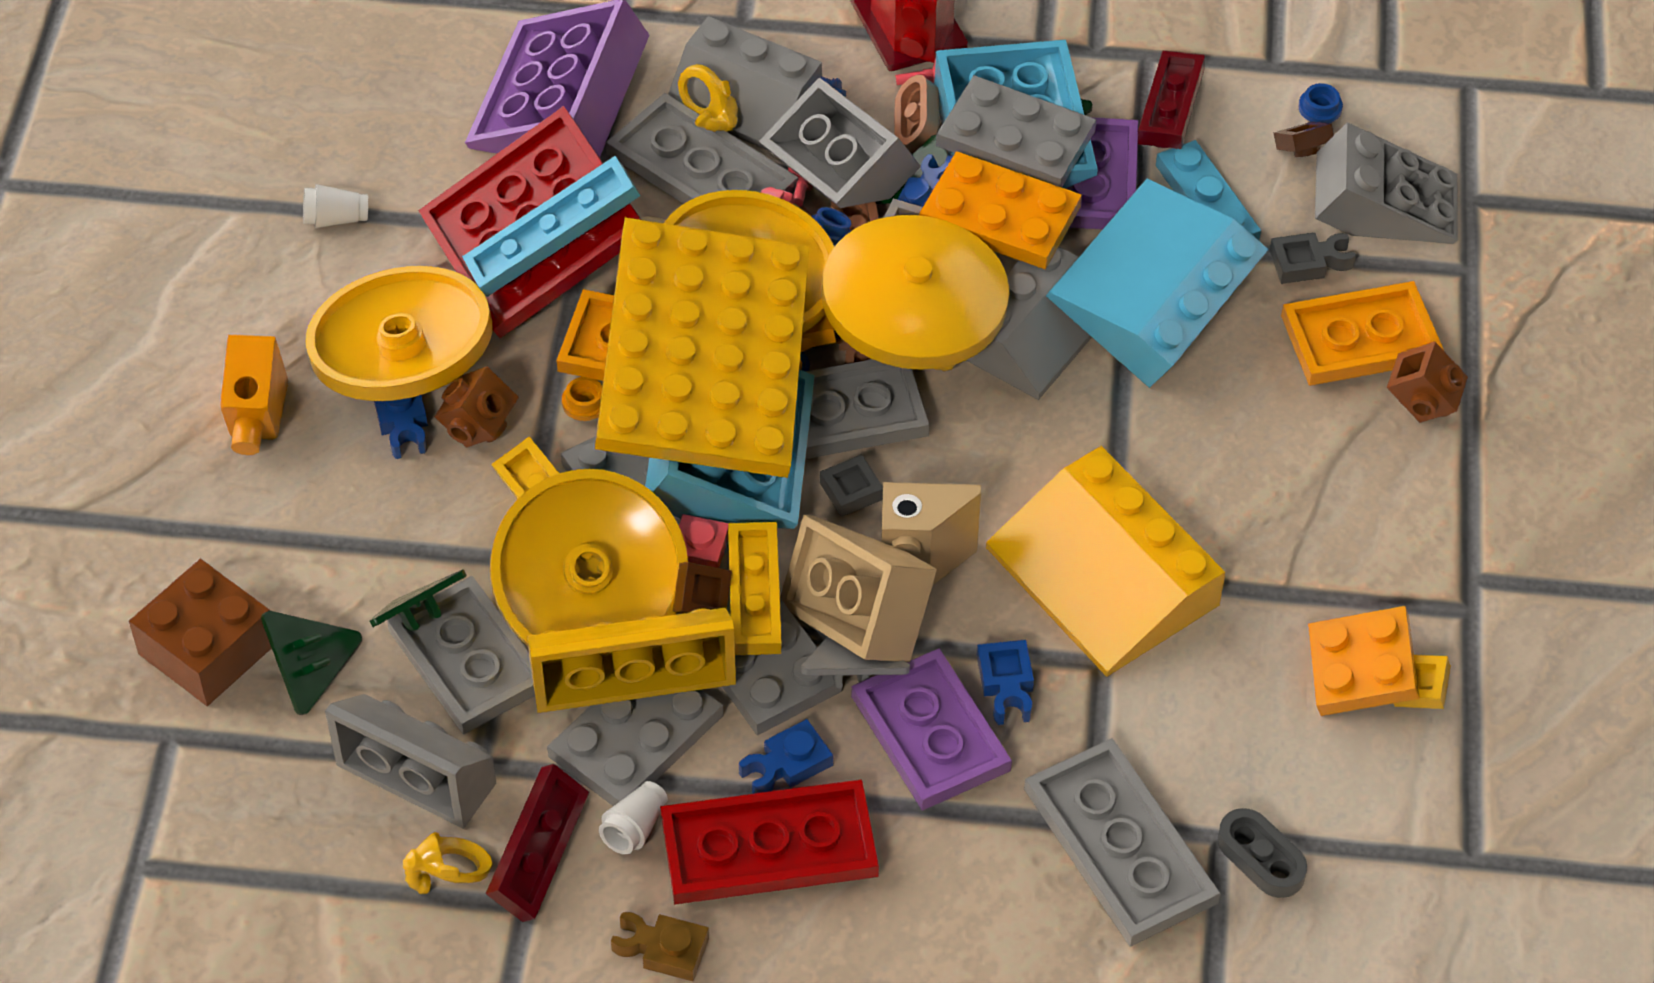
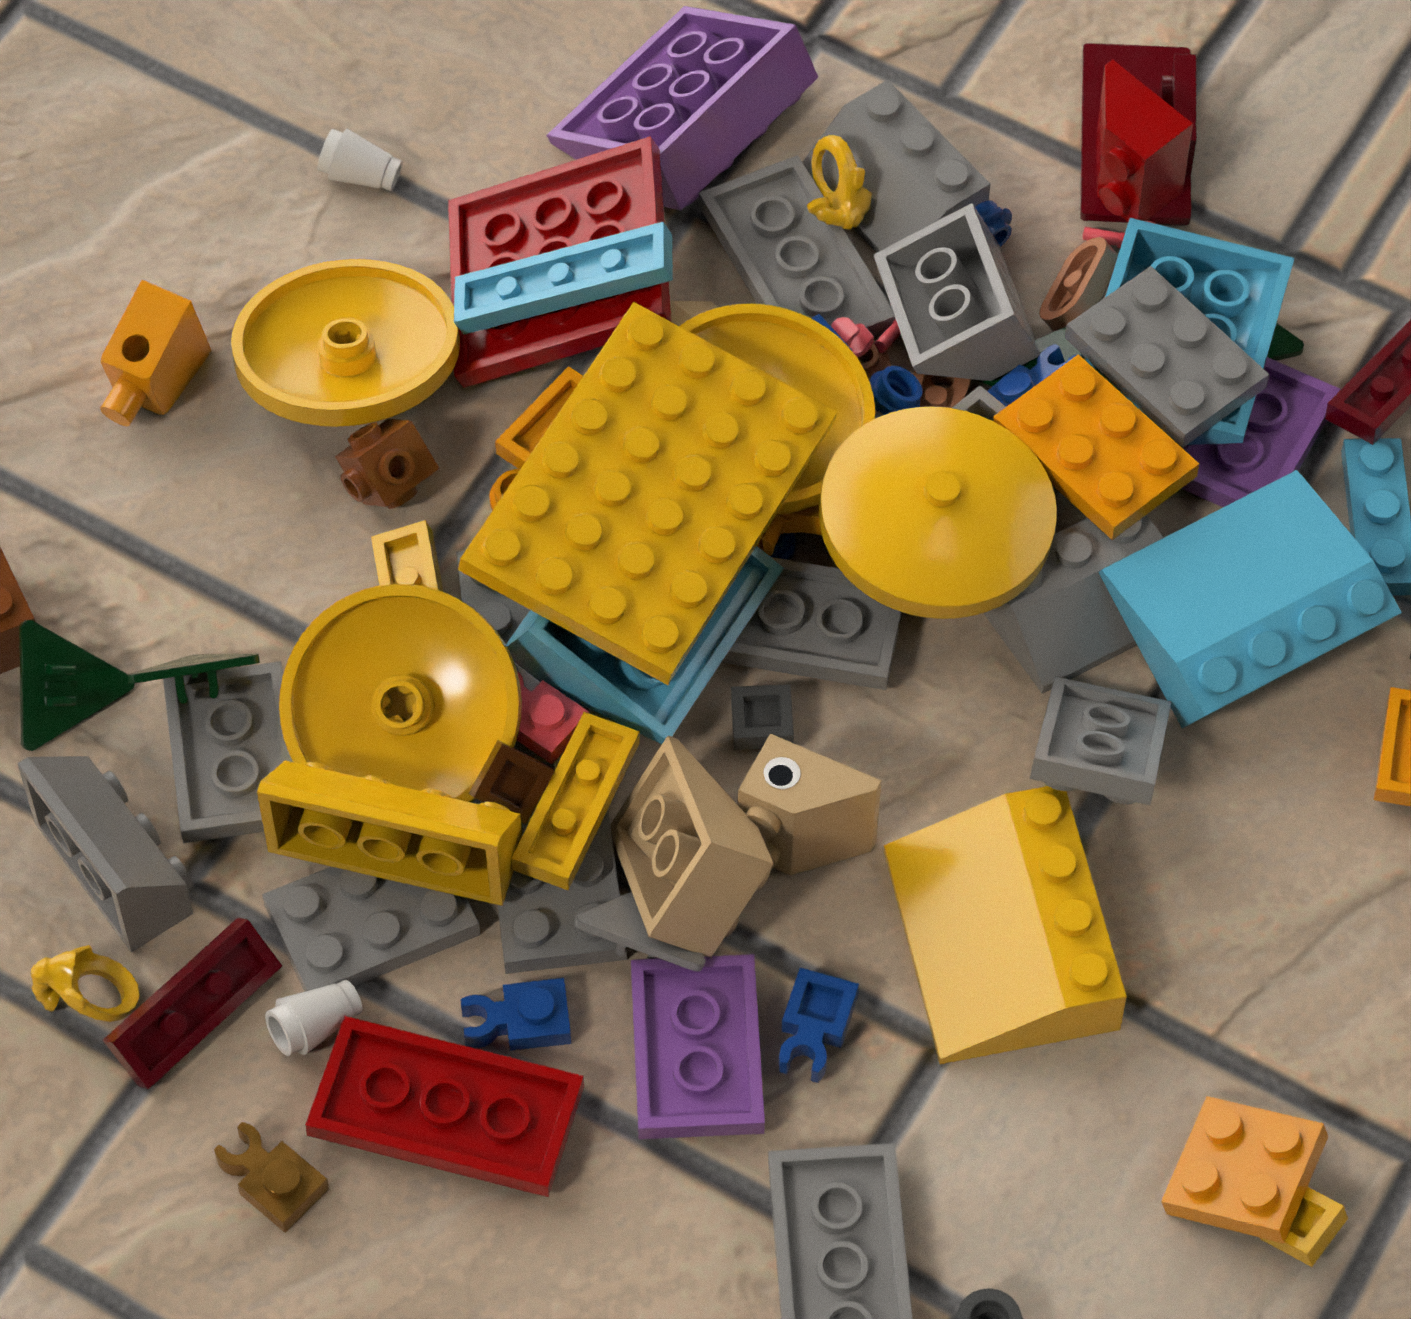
camera: 25 degrees right, 5 degrees up
(403, 422) = (303, 448): blue plate -> none
(1110, 410) = (1101, 741): none -> light grey plate

